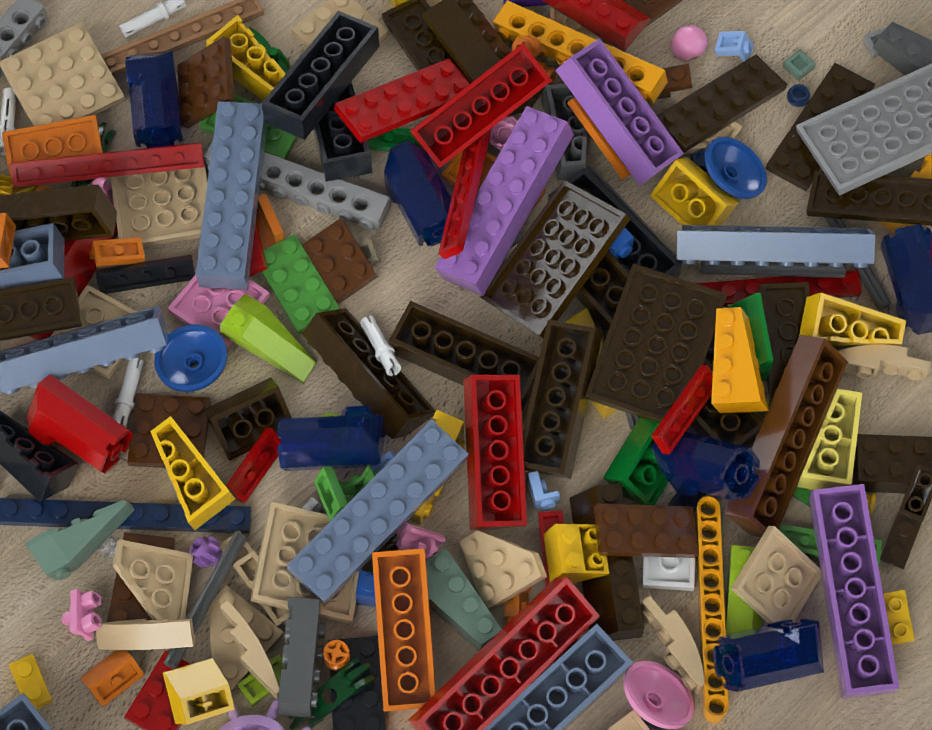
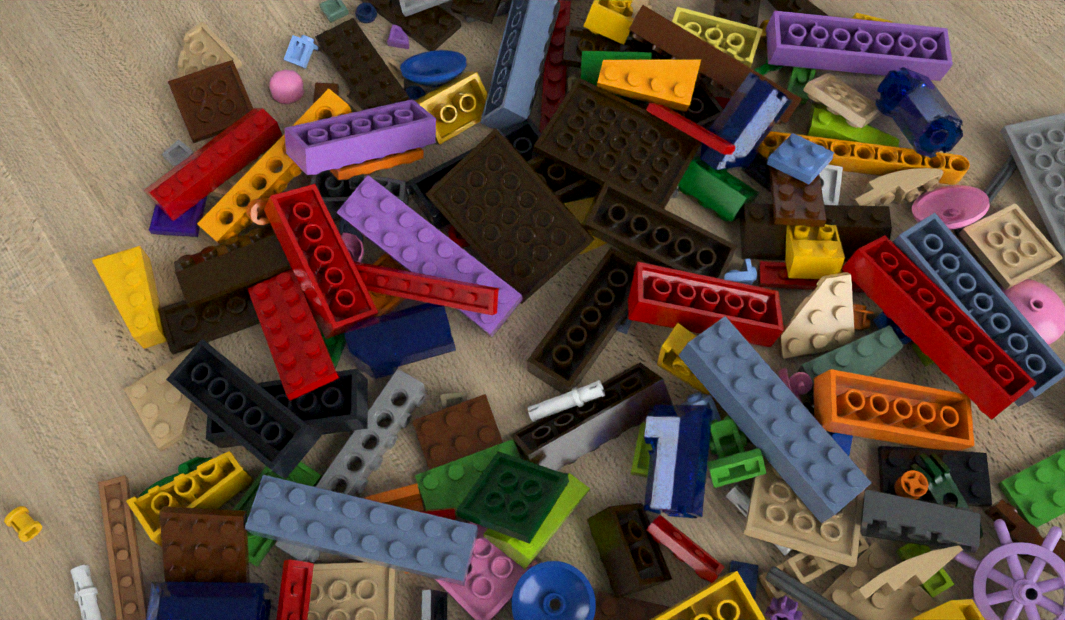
camera: 80 degrees left, 0 degrees up
(276, 305) = (513, 496): none -> dark green plate
(681, 530) = (800, 158): none -> medium blue plate
(775, 132) = (398, 38): none -> medium lavender tile

